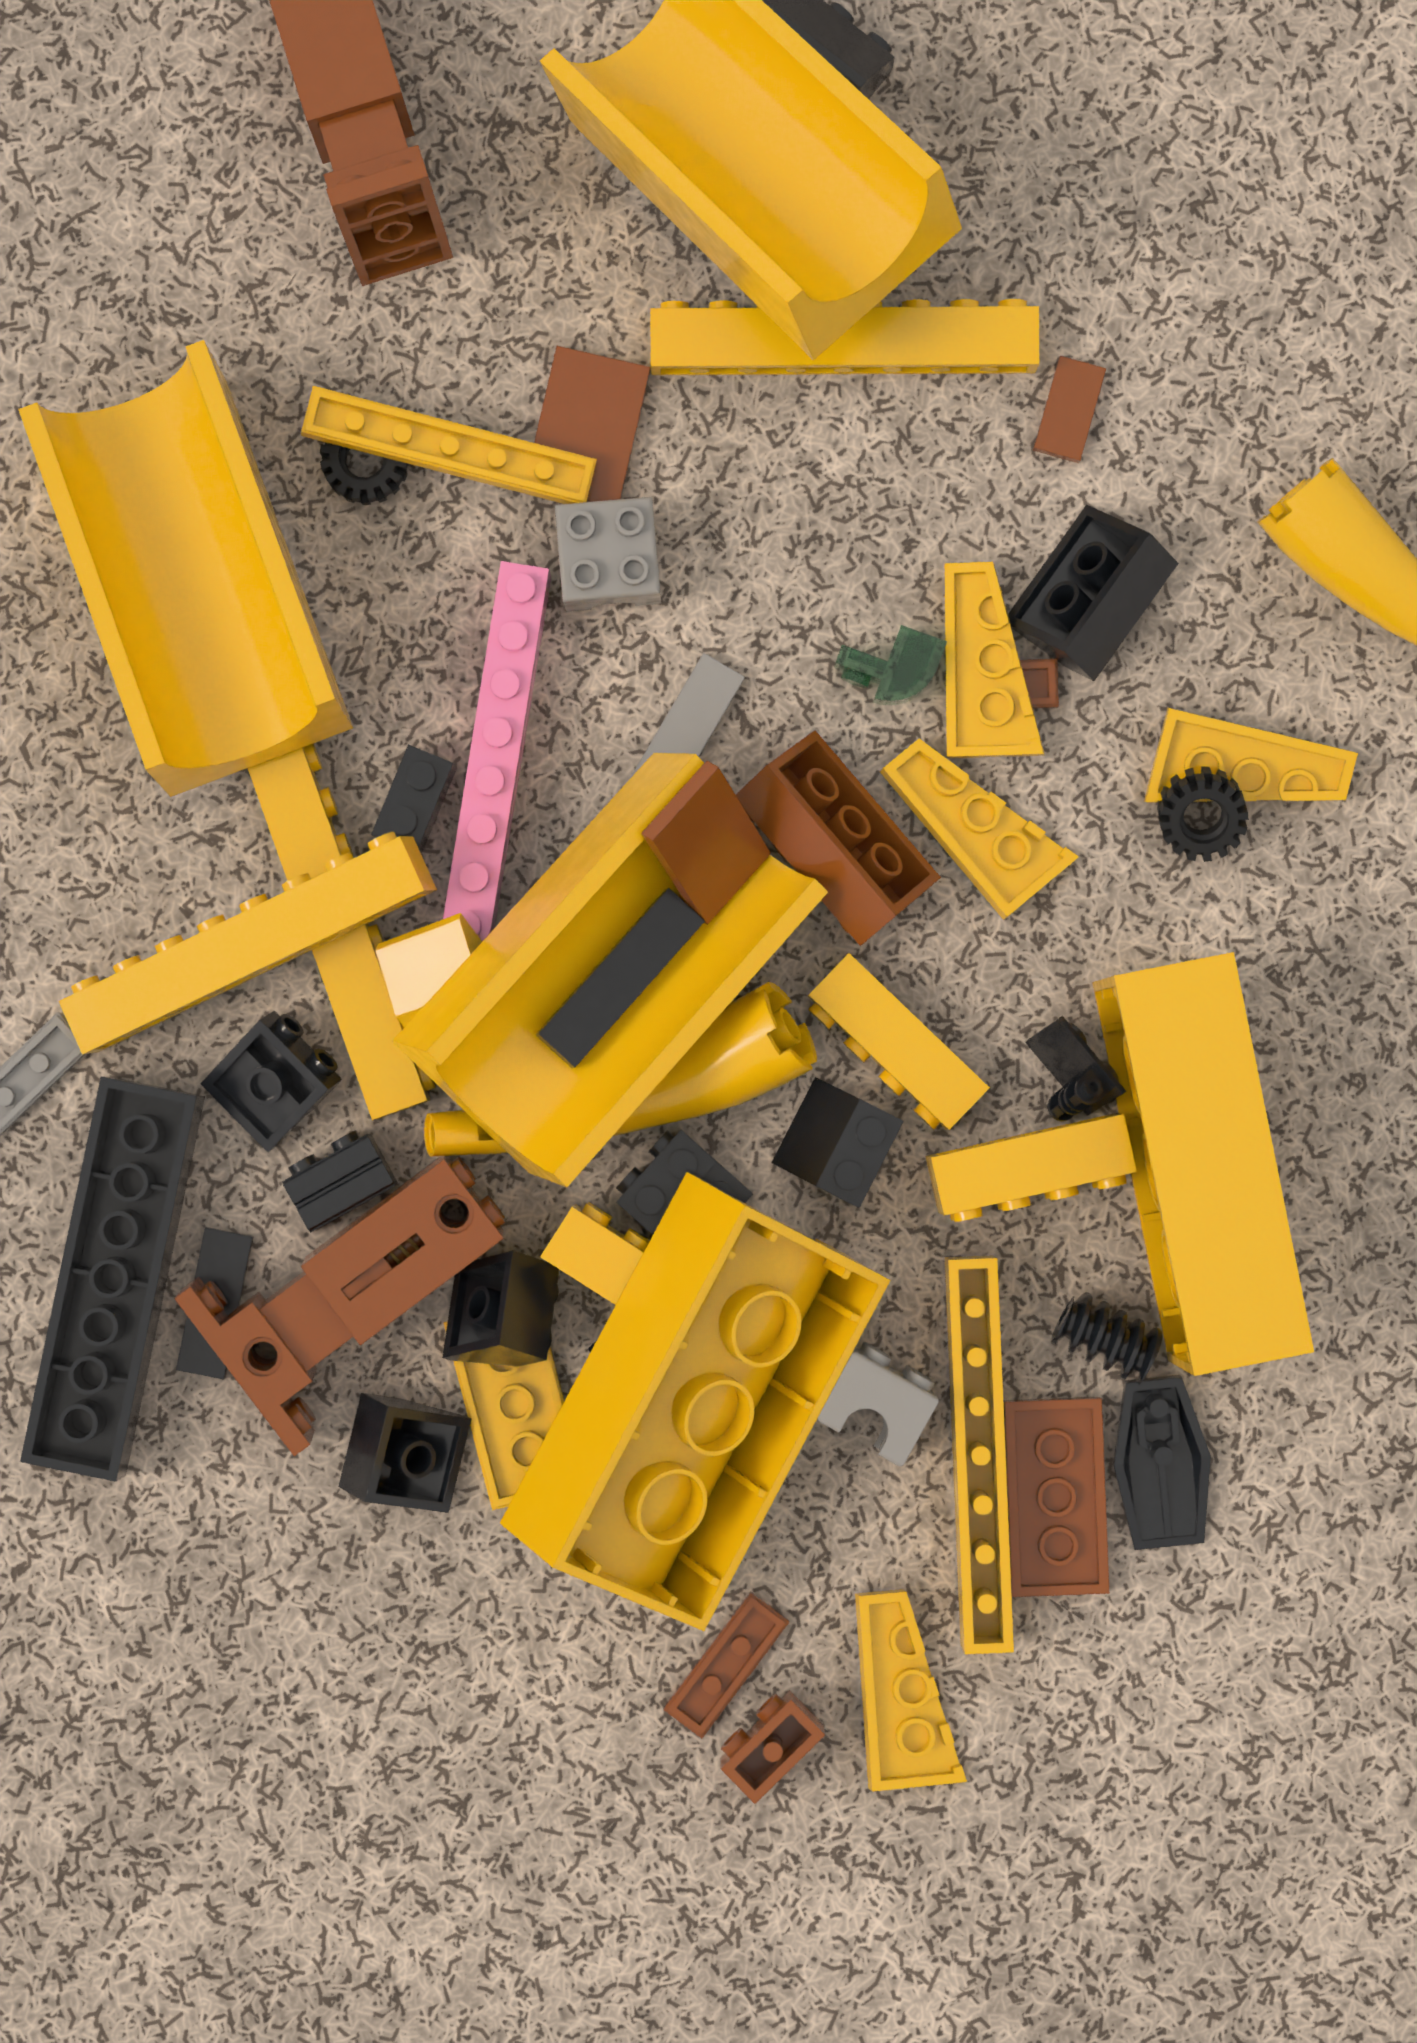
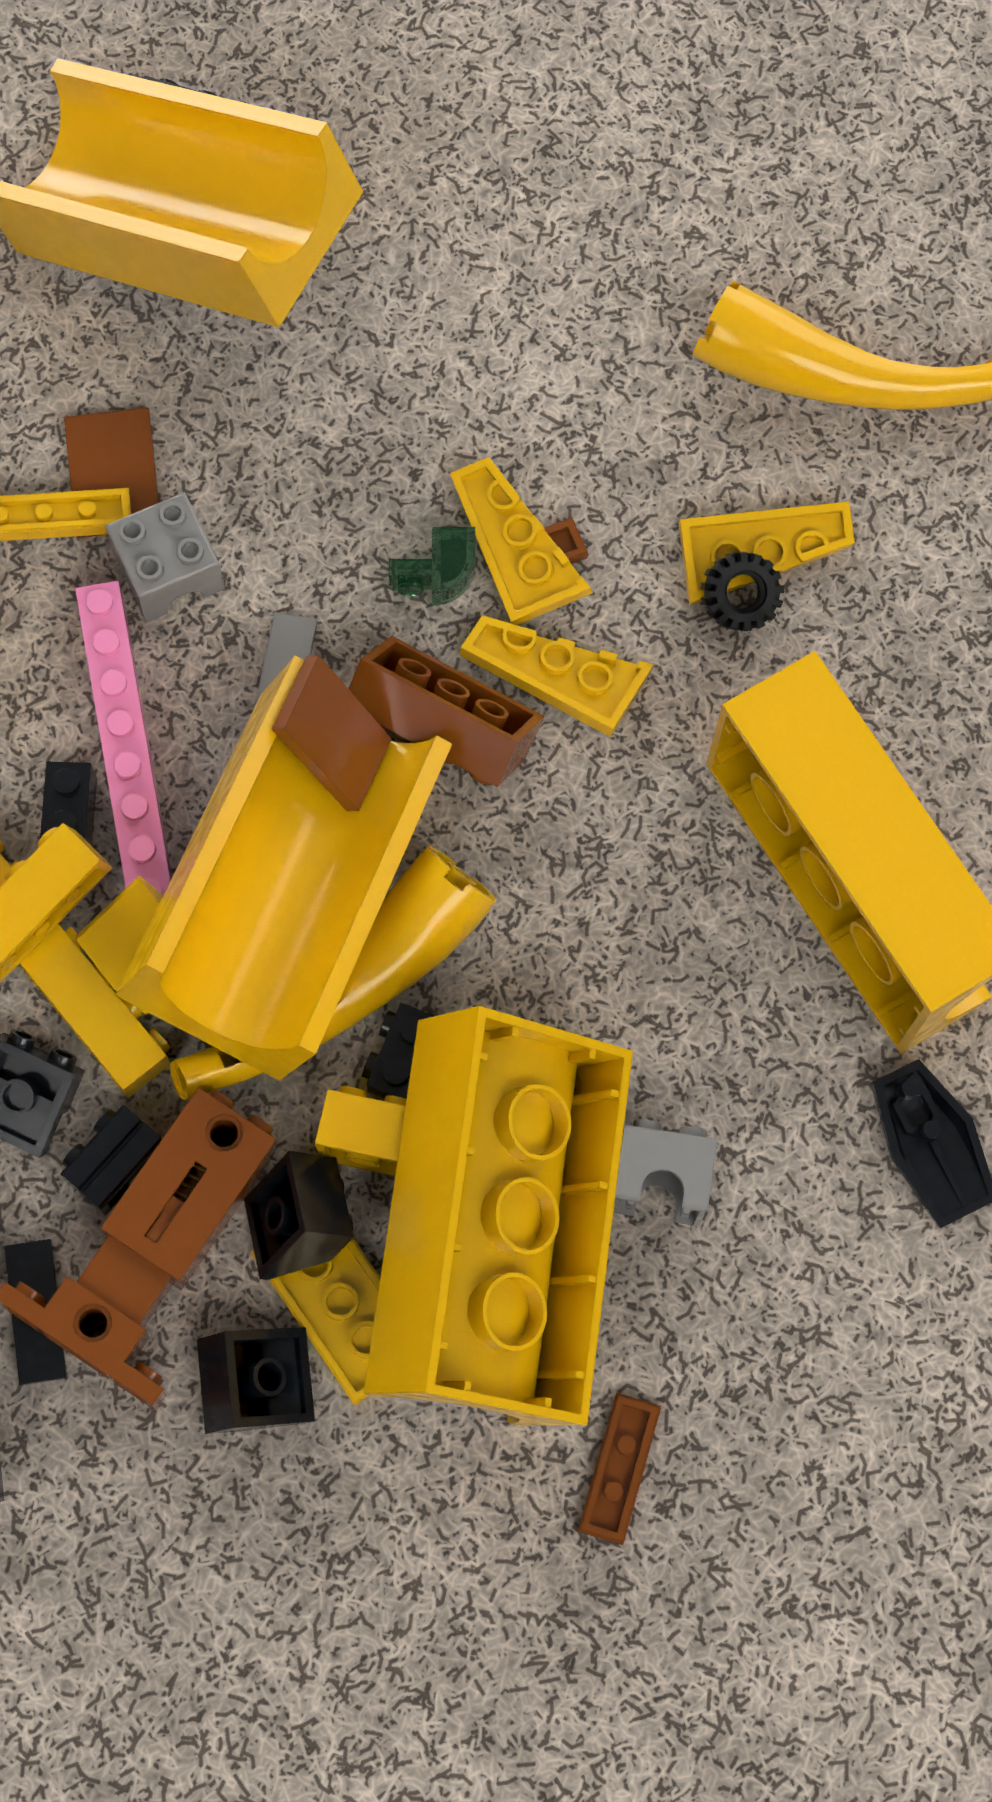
camera: 25 degrees left, 15 degrees down
(620, 978) = (298, 876): black tile -> none
(771, 1746) = (690, 1521): dark orange brick -> none
(837, 1142) = (541, 967): black slope -> none
(883, 341) = (312, 331): yellow brick -> none
(897, 1042) = (560, 866): yellow brick -> none
(900, 1699) = (794, 1450): yellow wing -> none
(979, 1454) = (771, 1188): yellow brick -> none
(1031, 1164) = (714, 921): yellow brick -> none
(1056, 1496) = (853, 1204): dark orange plate -> none
(1069, 409) = (505, 328): dark orange tile -> none
(1084, 1077) = (720, 829): black hinge -> none
(1092, 591) = (580, 453): black slope -> none
(1108, 1336) = (841, 1046): black piece -> none

